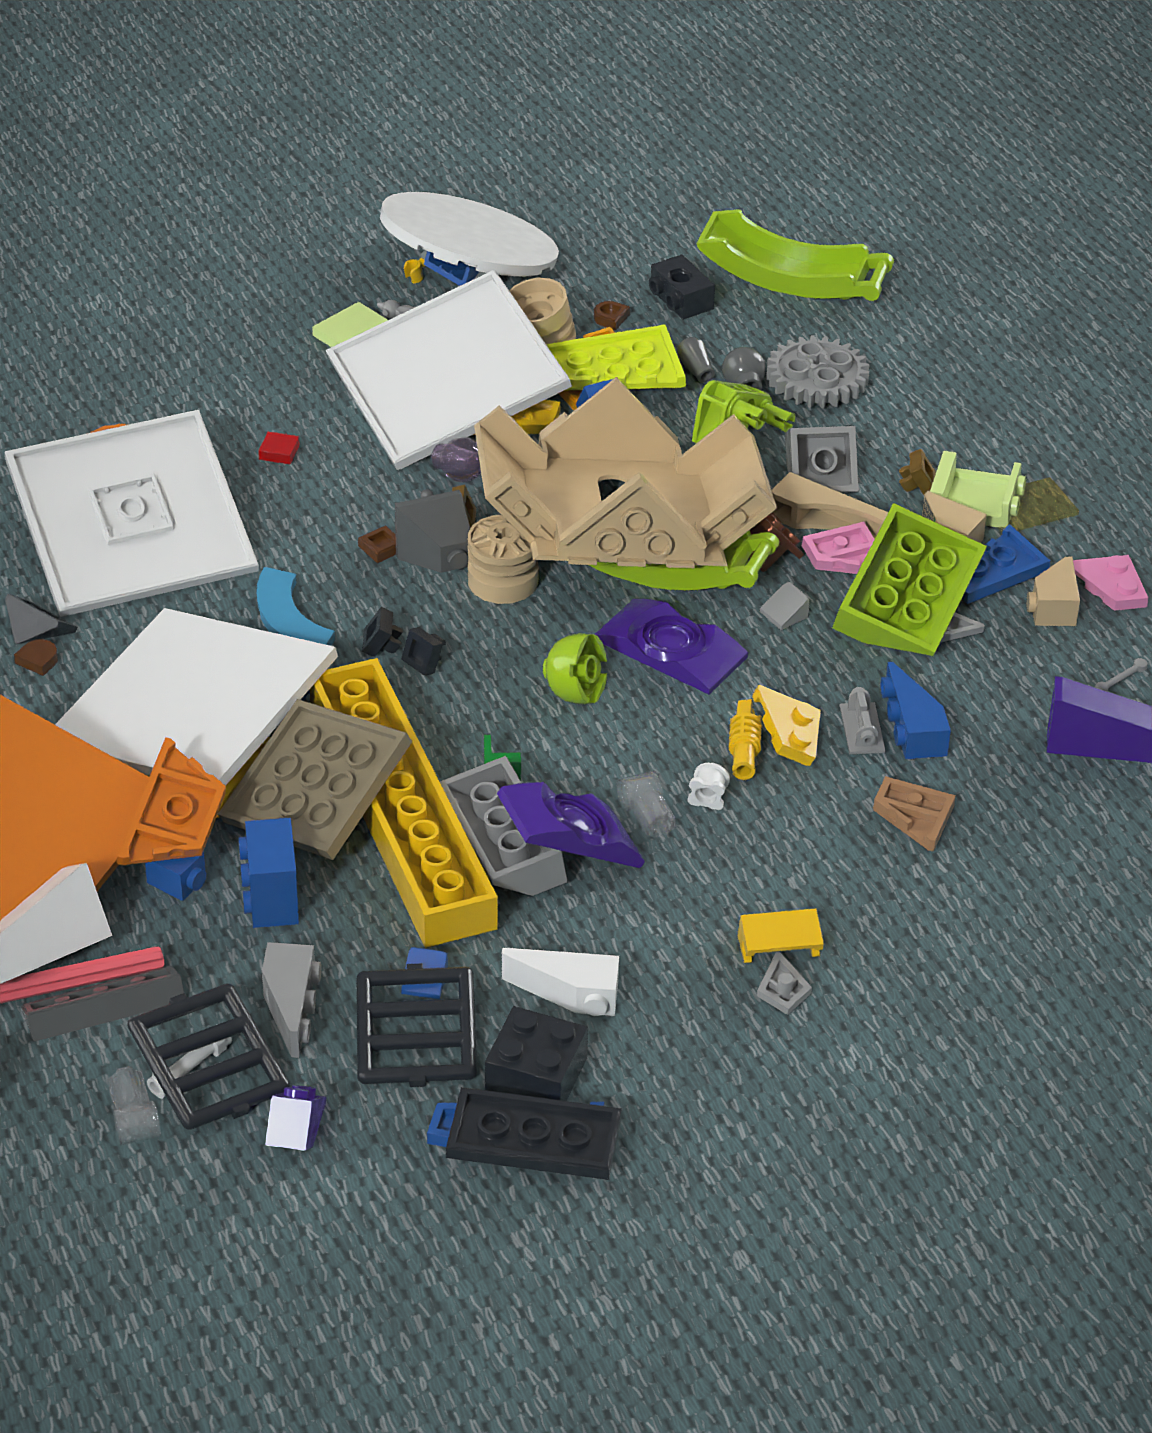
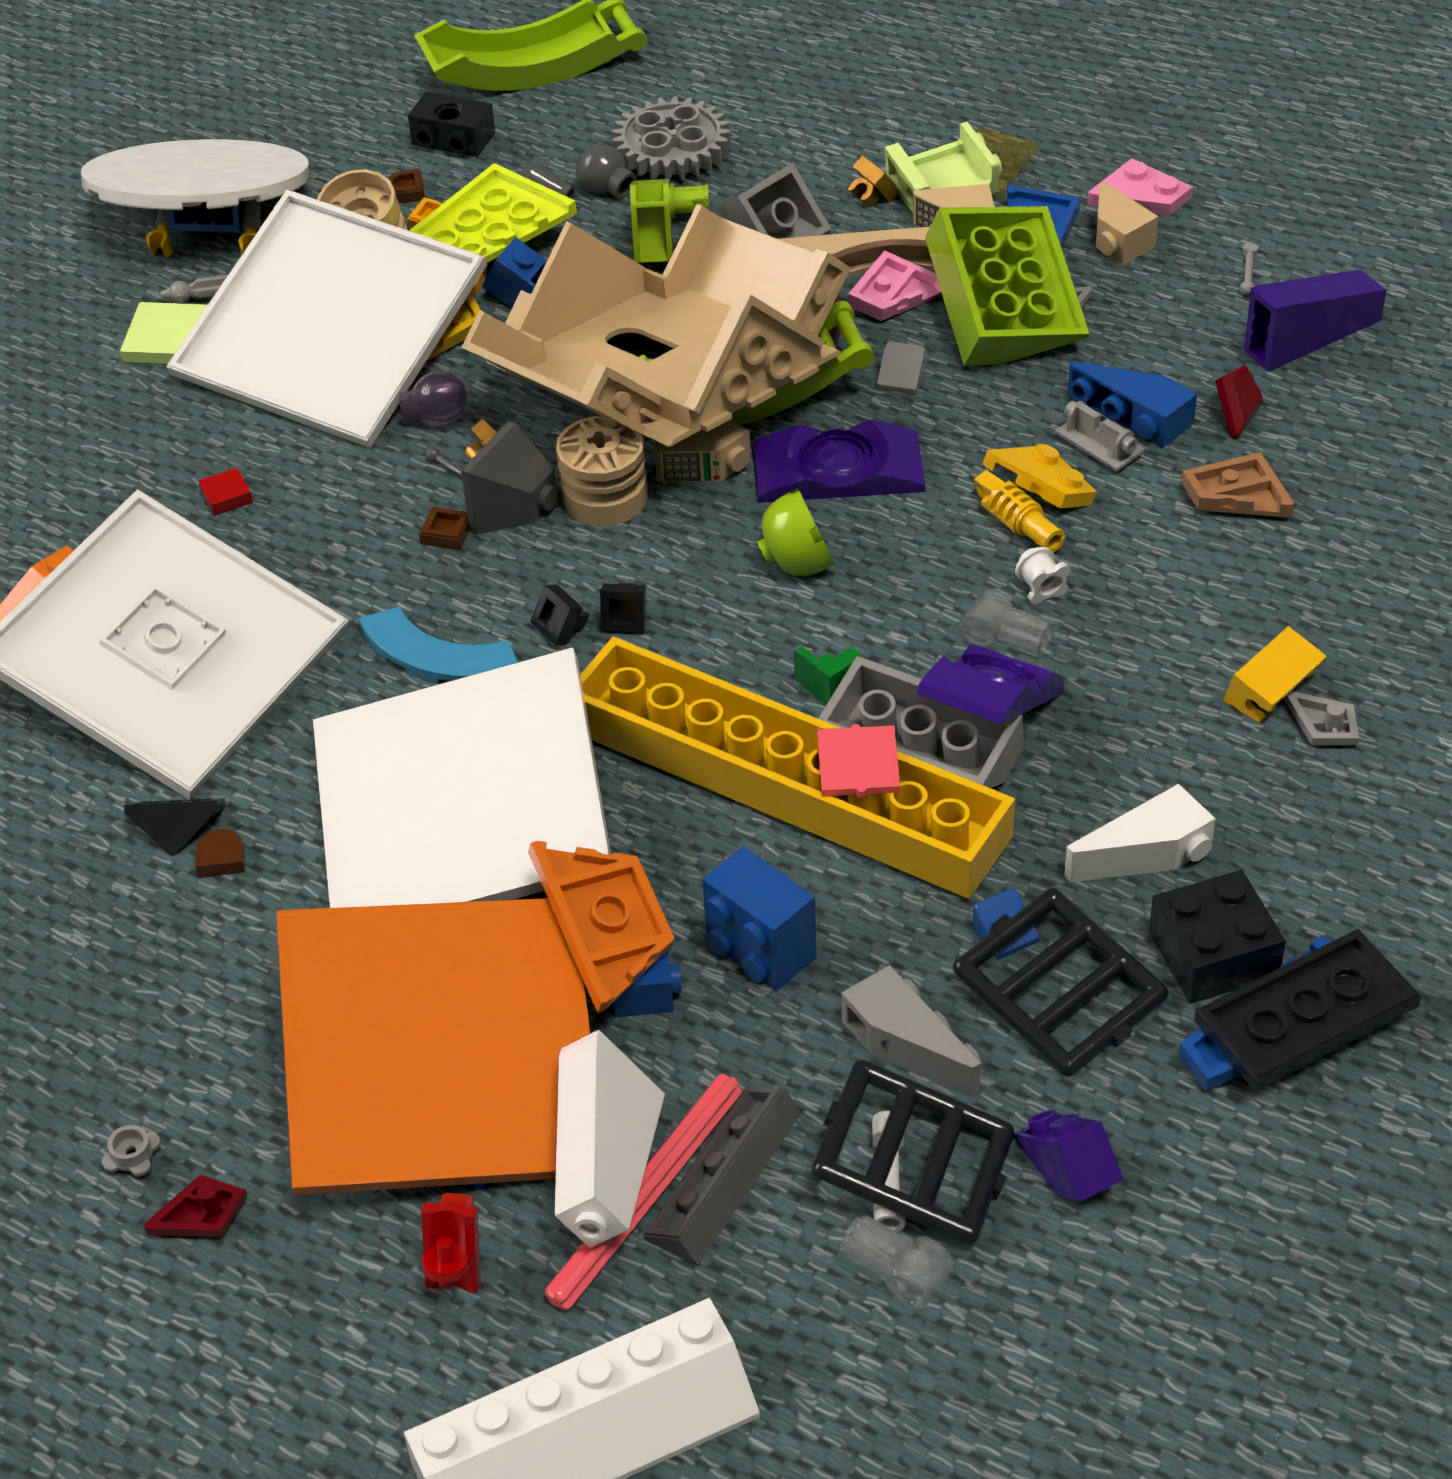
camera: 35 degrees left, 5 degrees up
(319, 773) = (698, 786): dark tan plate -> none
(428, 816) = (858, 761): none -> coral piece
(587, 586) = (705, 455): none -> tan slope
(990, 754) = (1239, 399): none -> dark red piece

